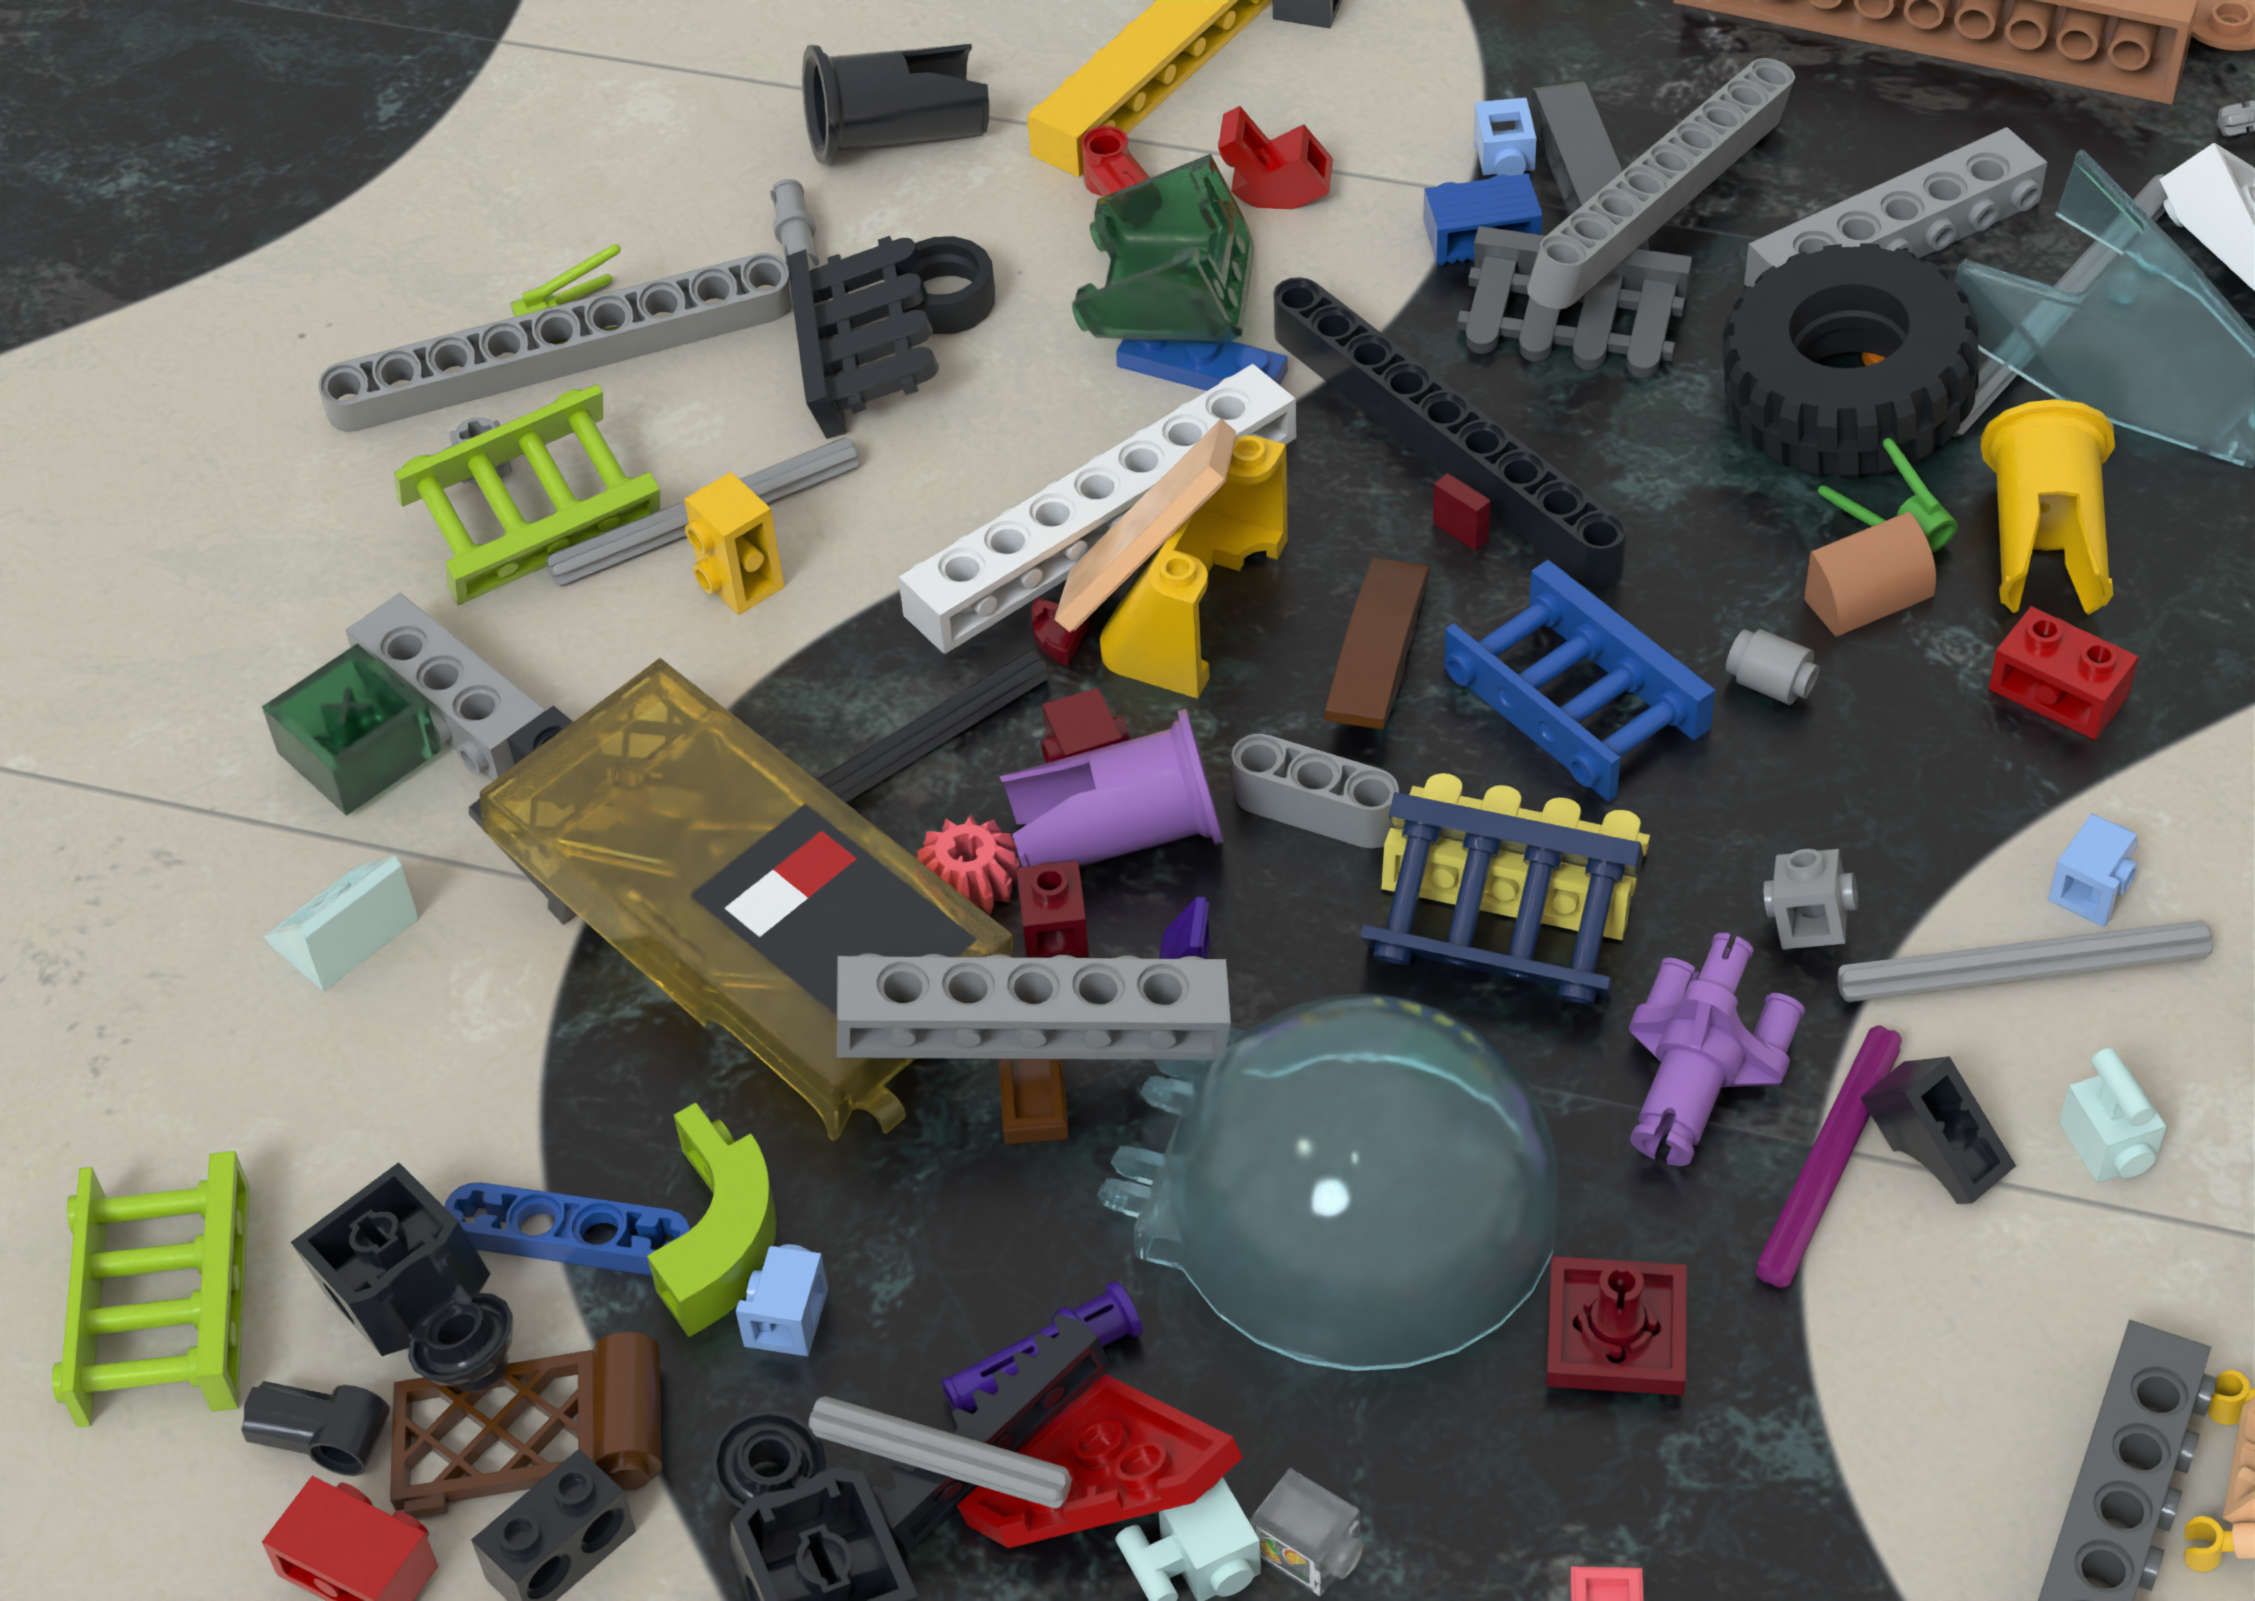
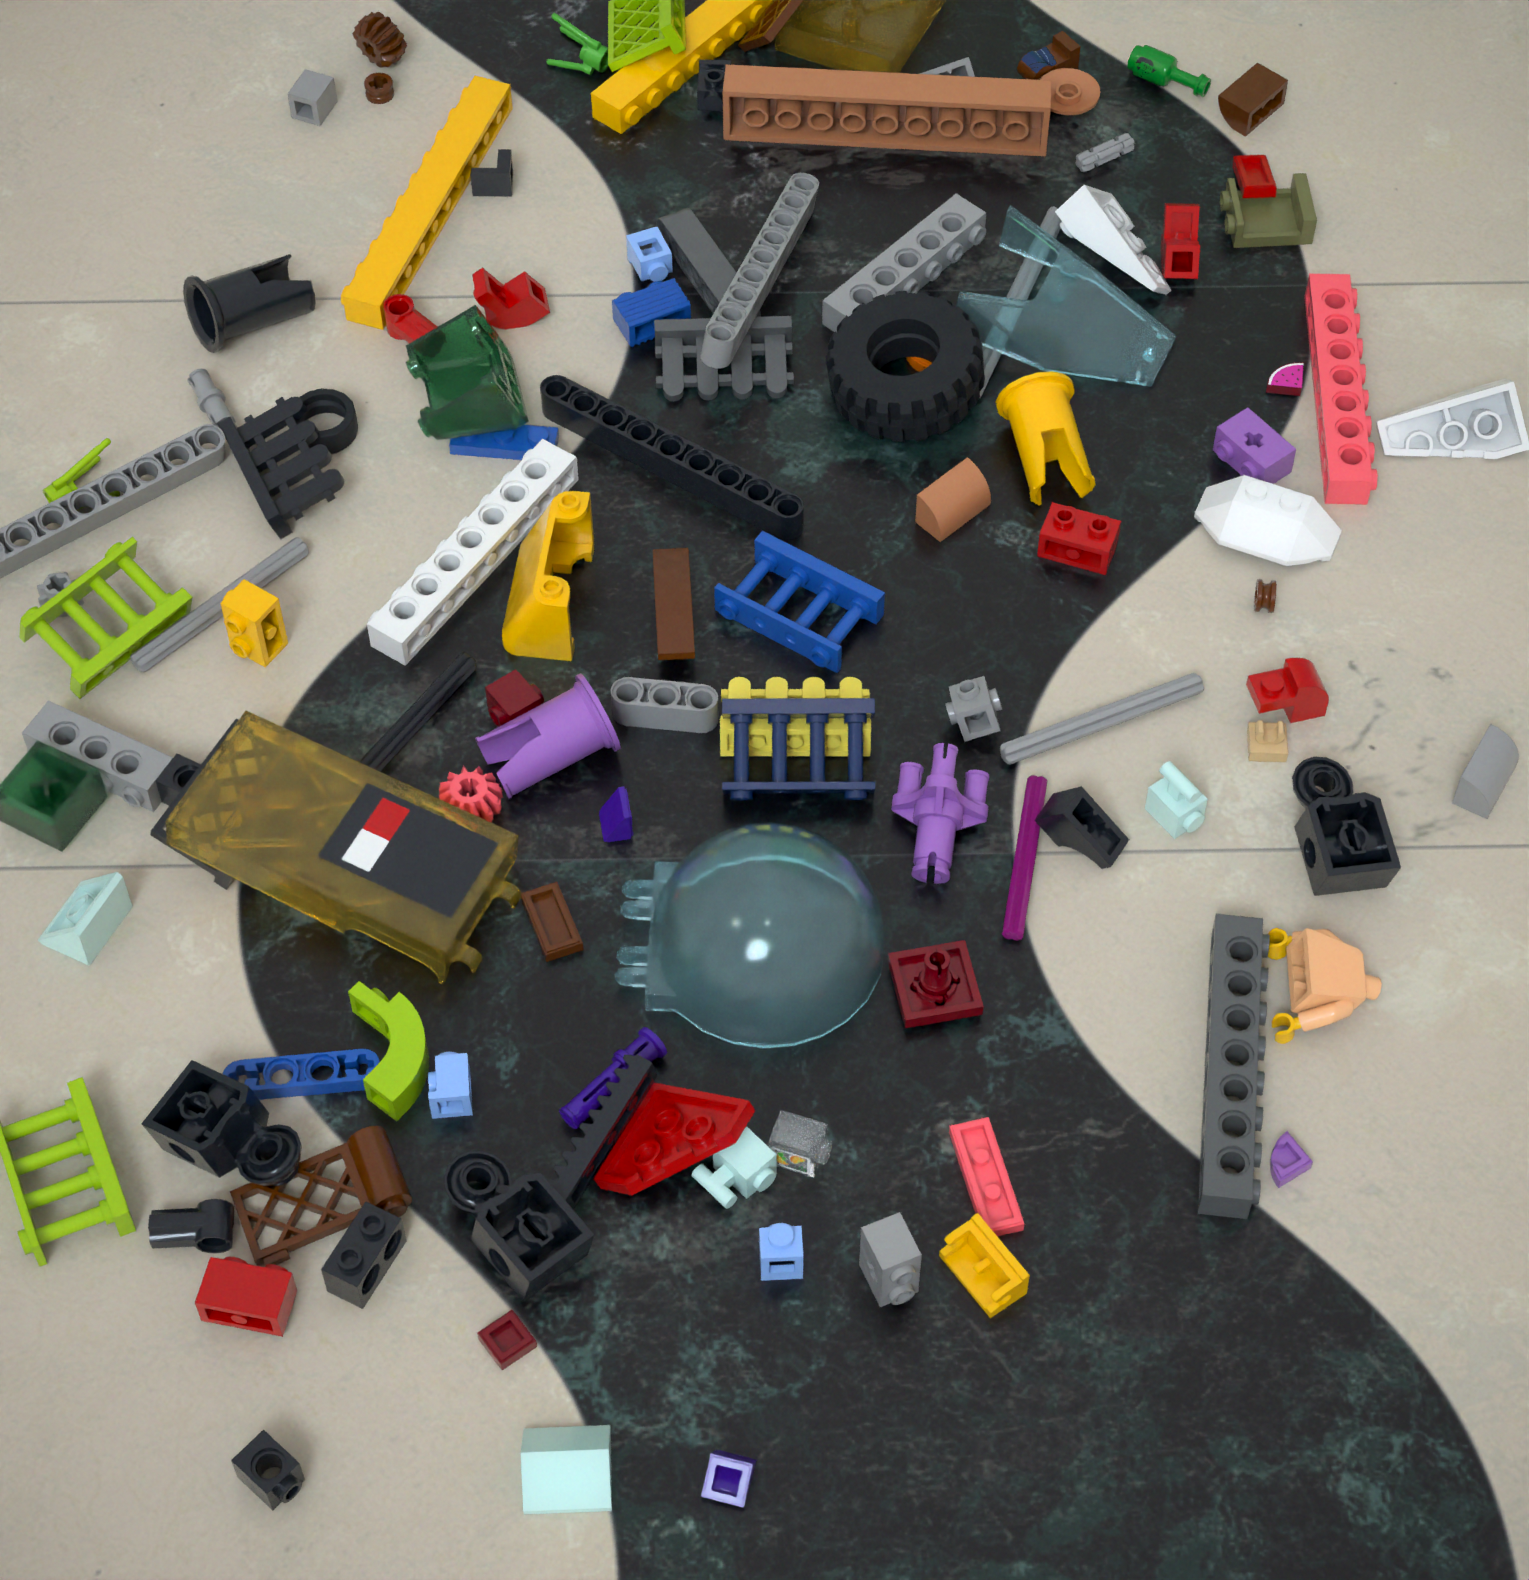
camera: 20 degrees left, 5 degrees up
(940, 1452) = (581, 1150): light grey axle -> none
(1006, 1027) = (534, 892): light grey brick -> none
(1053, 910) = (532, 814): dark red brick -> none
(1054, 636) = (472, 635): dark red tile -> none
(1146, 526) = (517, 561): light nougat tile -> none
(1461, 511) = (698, 509): dark red tile -> none
(1772, 665) = (911, 569): light grey brick -> none
(1930, 514) = (972, 450): bright green plant -> none
(2095, 869) = (1128, 655): light blue brick -> none

